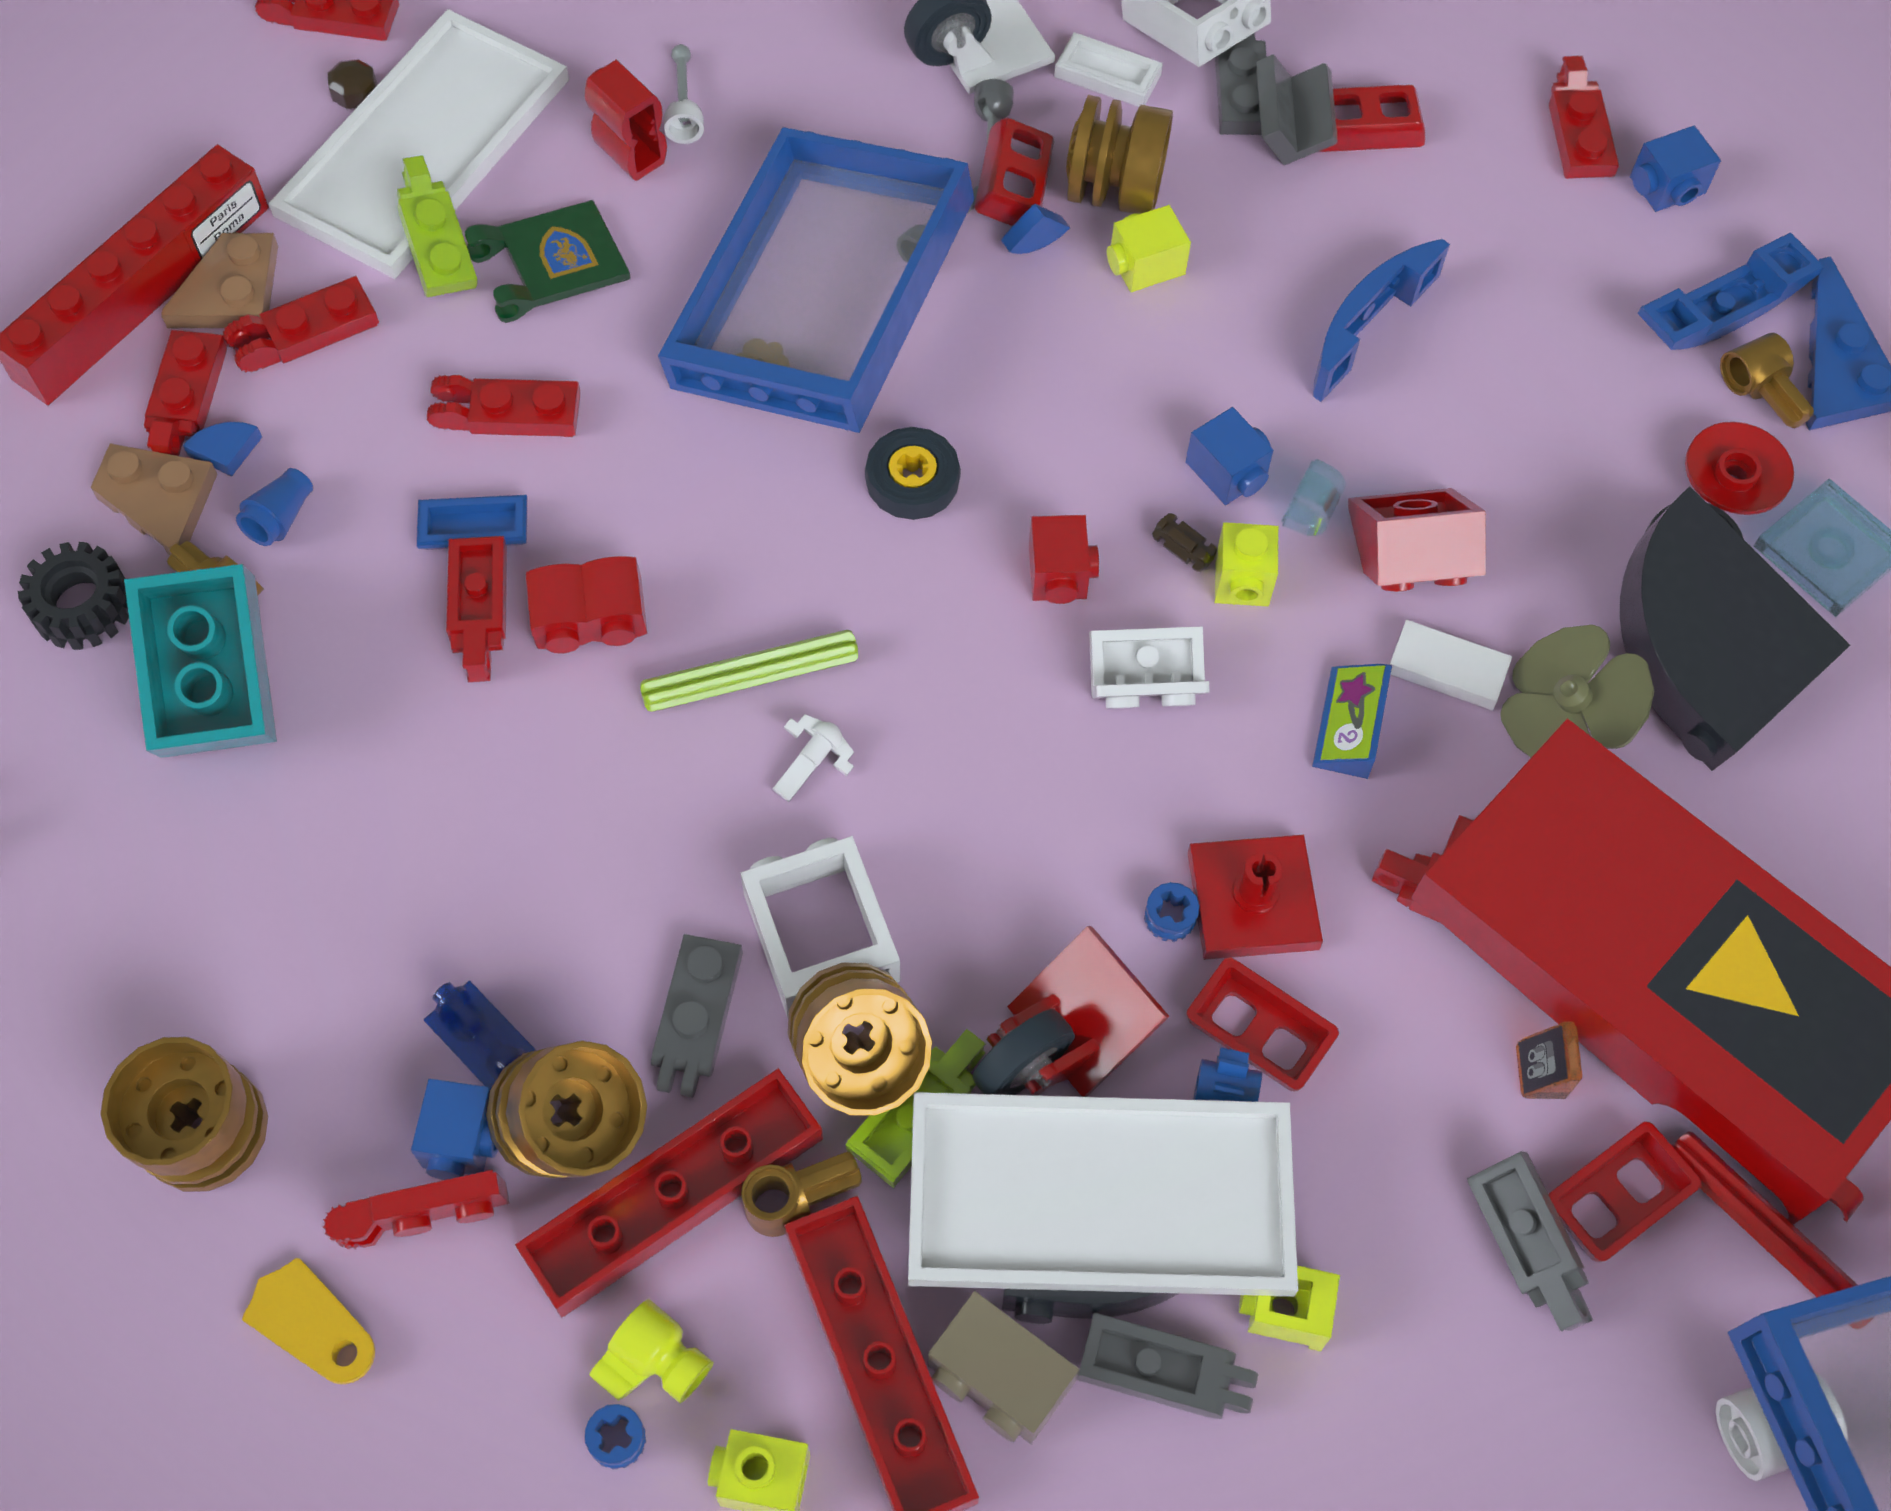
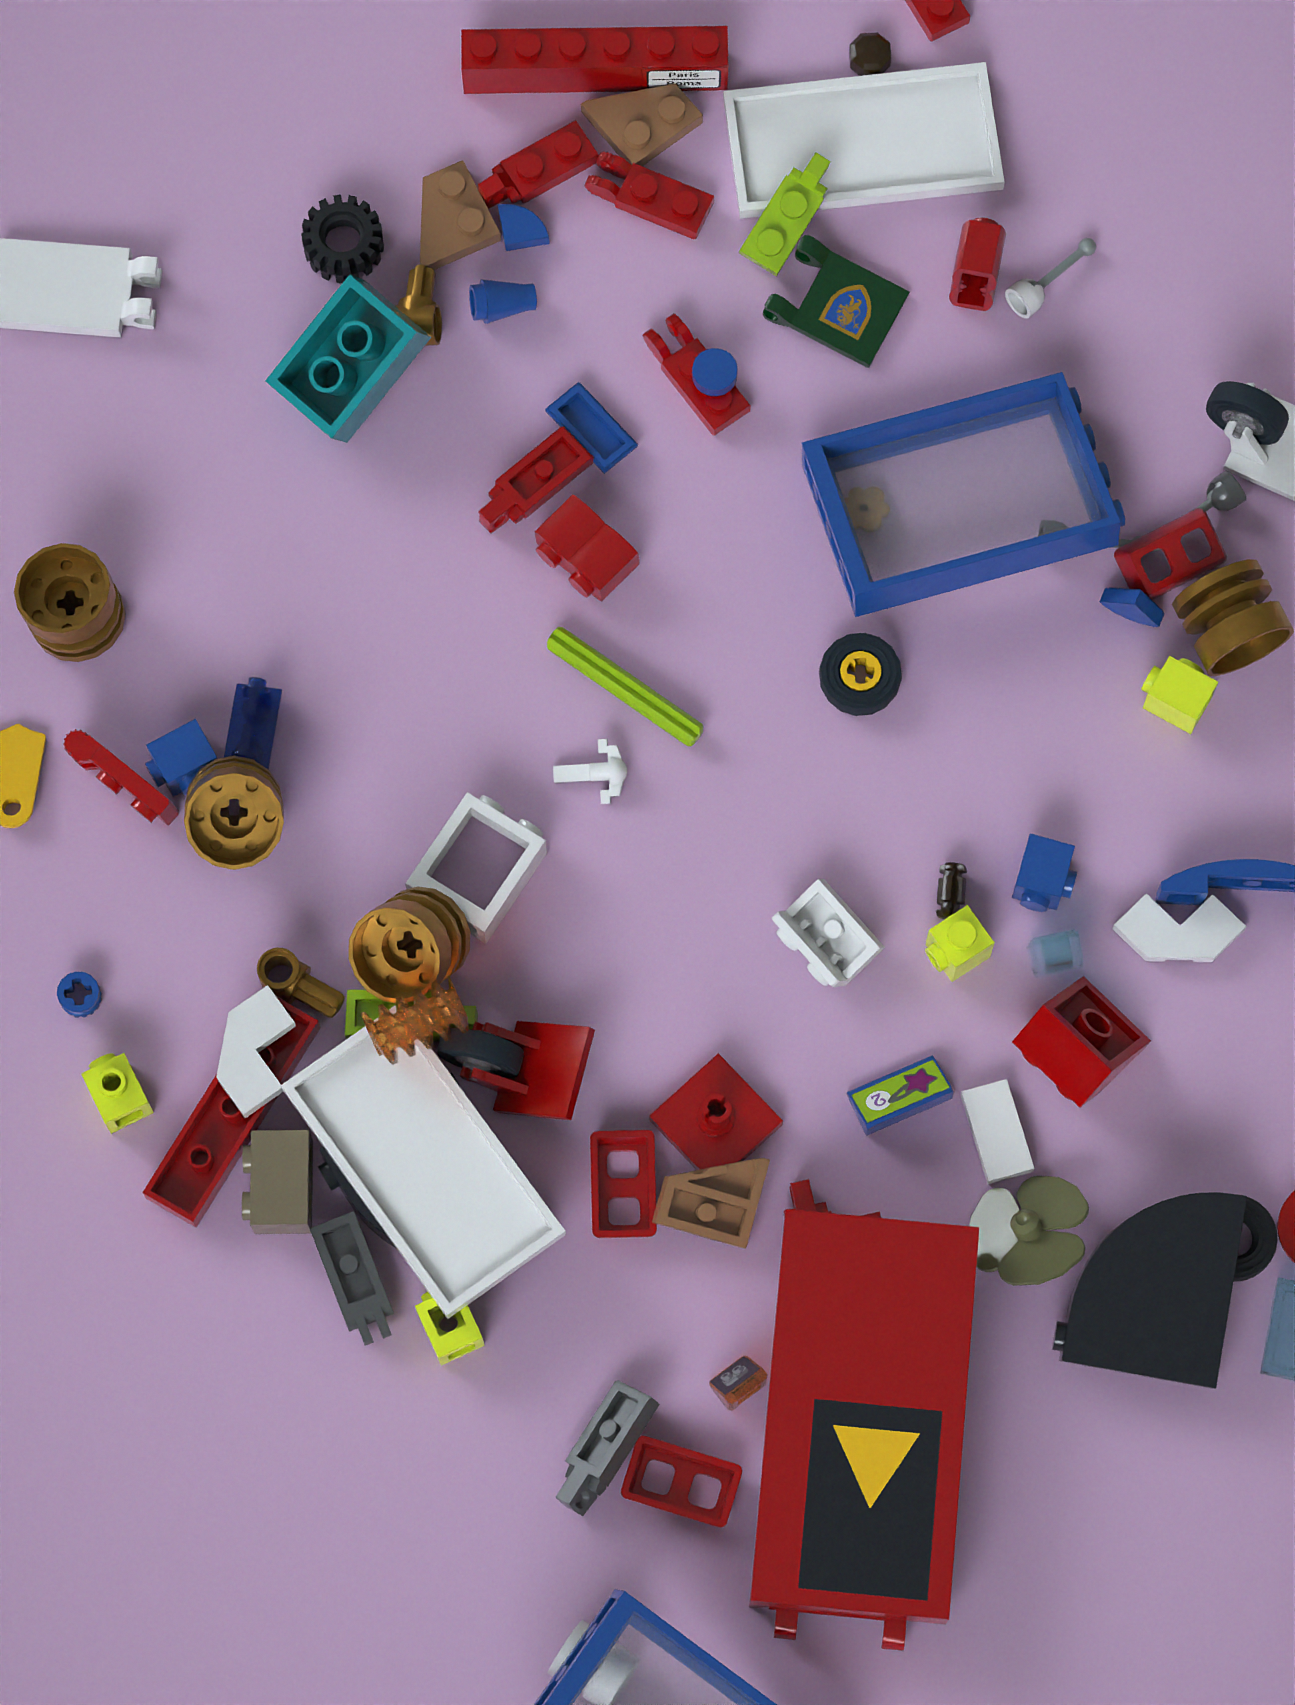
camera: 55 degrees right, 10 degrees up
(523, 378) = (714, 372): none -> blue tile
(648, 1346) = (143, 972): neon yellow piece -> none
(668, 1192) = (239, 910): red piece -> none
(695, 1011) = (366, 837): dark grey hinge -> none
(849, 1311) = (247, 1032): none -> white tile
(956, 1079) = (416, 1021): none -> clear orange piece
(1061, 558) = (865, 820): red brick -> none
(1166, 926) = (657, 1061): blue bush -> none
(1228, 1078) = (563, 1189): blue gear -> none
(1344, 950) = (713, 1201): none -> medium nougat wing
(1359, 416) = (1160, 938): none -> white tile
(1762, 1219) = (733, 1579): red axle -> none

